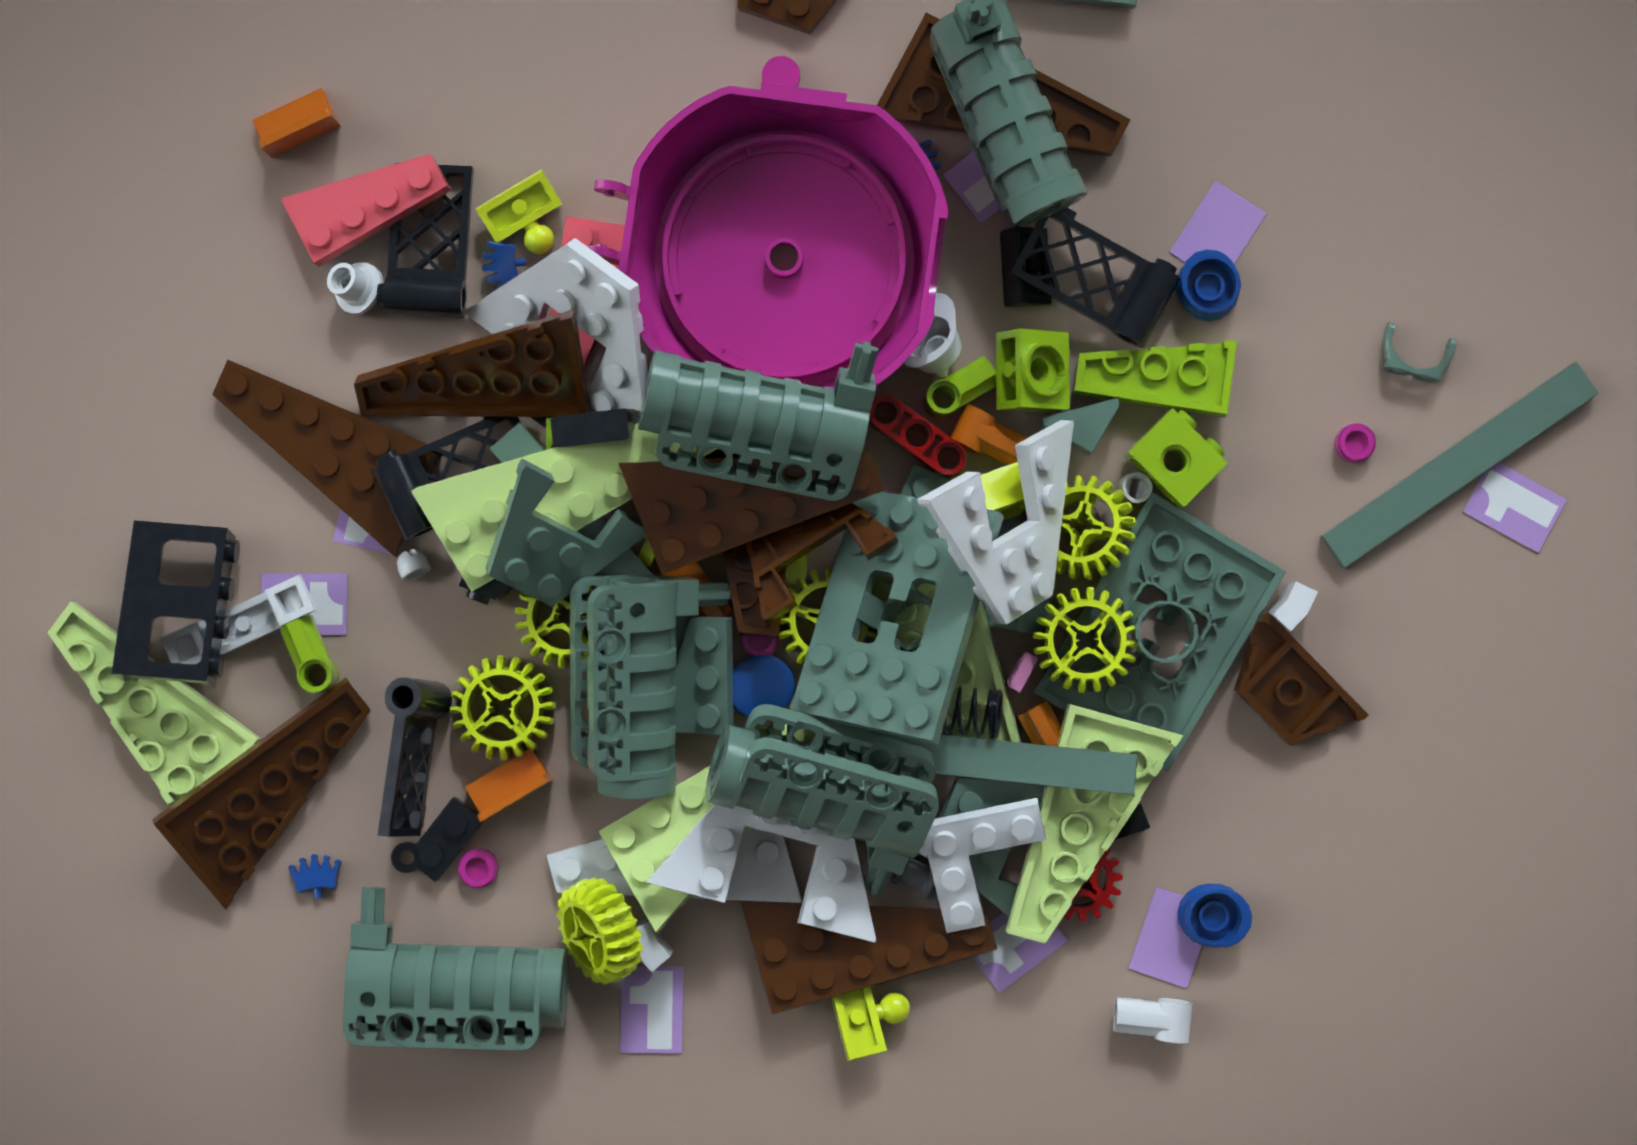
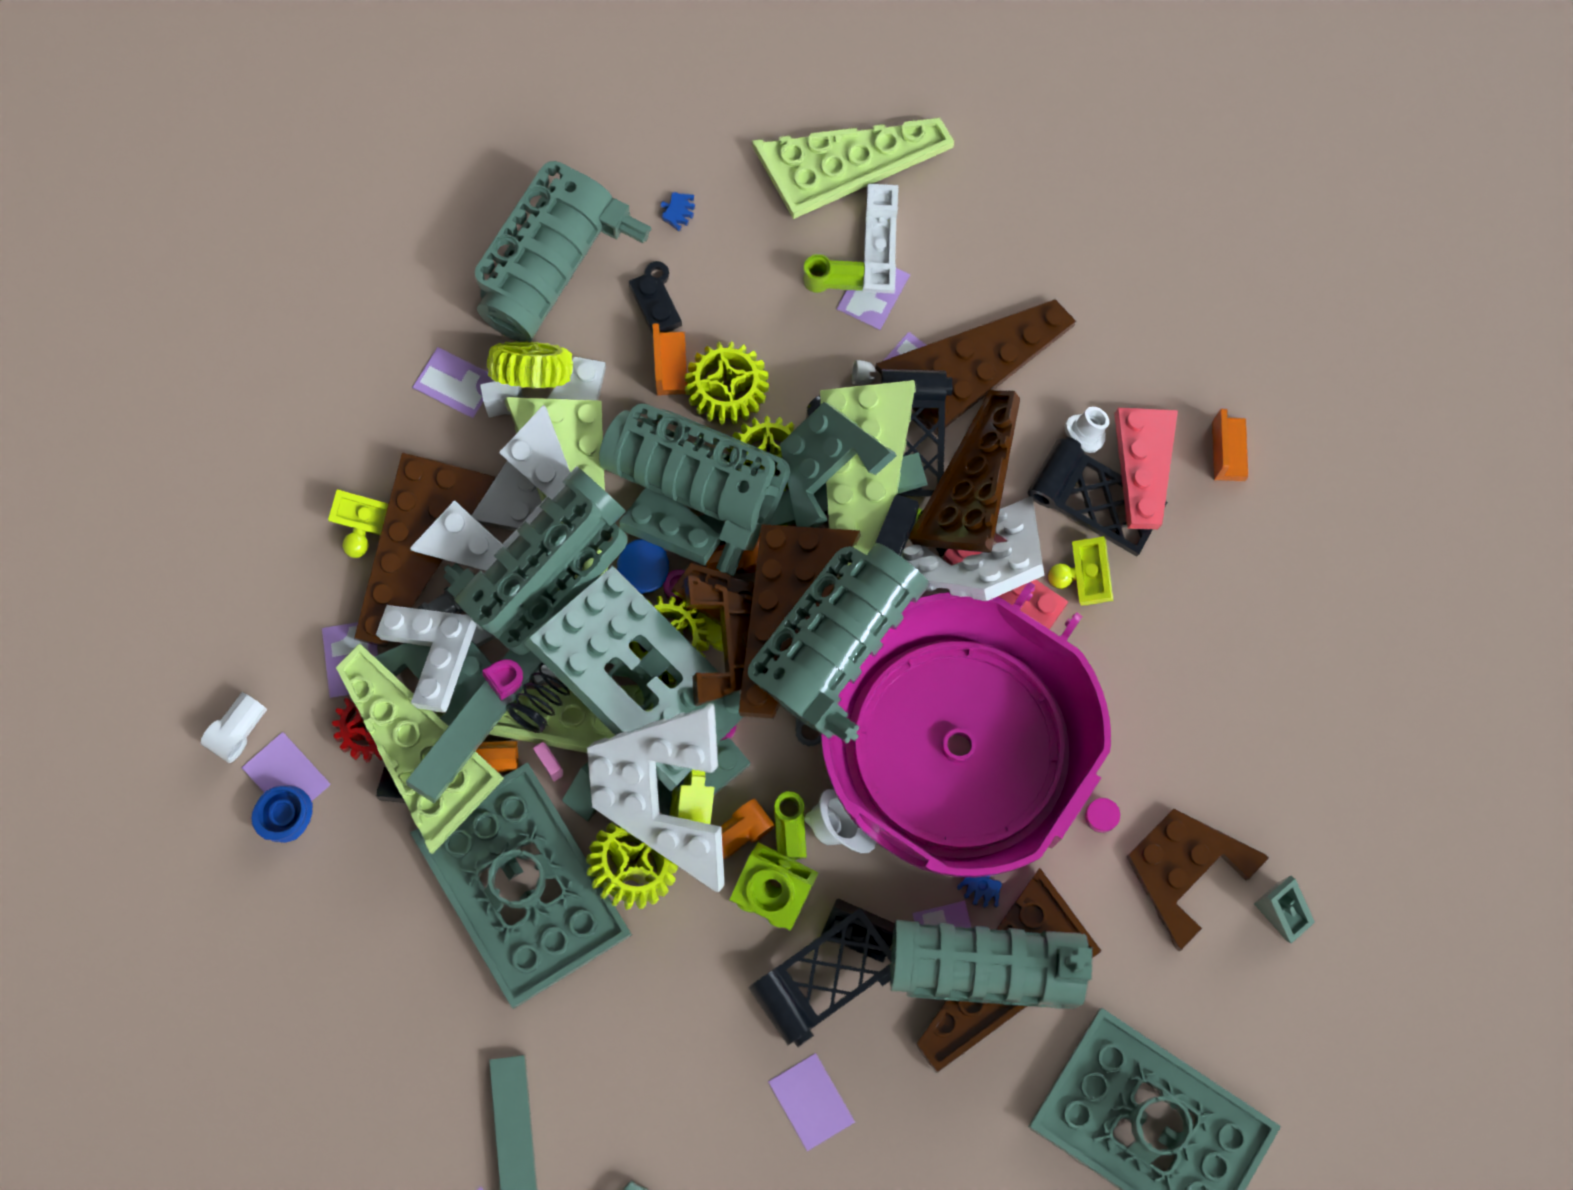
camera: 110 degrees right, 15 degrees down
(147, 599) = (928, 185): black window -> none
(249, 802) = (752, 188): reddish brown wing -> none
(416, 711) = (757, 318): black piece -> none
(478, 868) = (622, 315): dark pink tile -> none
(503, 263) = (1055, 540): blue piece -> none
(936, 439) = (778, 760): red beam -> none
(967, 759) = (504, 677): none -> dark pink tile
(1089, 423) = (711, 908): sand green slope -> none
(1108, 614) = (534, 790): neon yellow gear -> none
(1141, 490) = (636, 927): white hinge -> none
(1180, 378) = (712, 1000): lime wing -> none
(1199, 457) = (666, 975): lime brick -> none
(1208, 285) = (771, 1068): blue piece -> none
(1290, 686) = (419, 965): reddish brown wing -> none
(1293, 604) = (482, 997): white piece -> none
(1355, 443) = (583, 1124): dark pink tile -> none

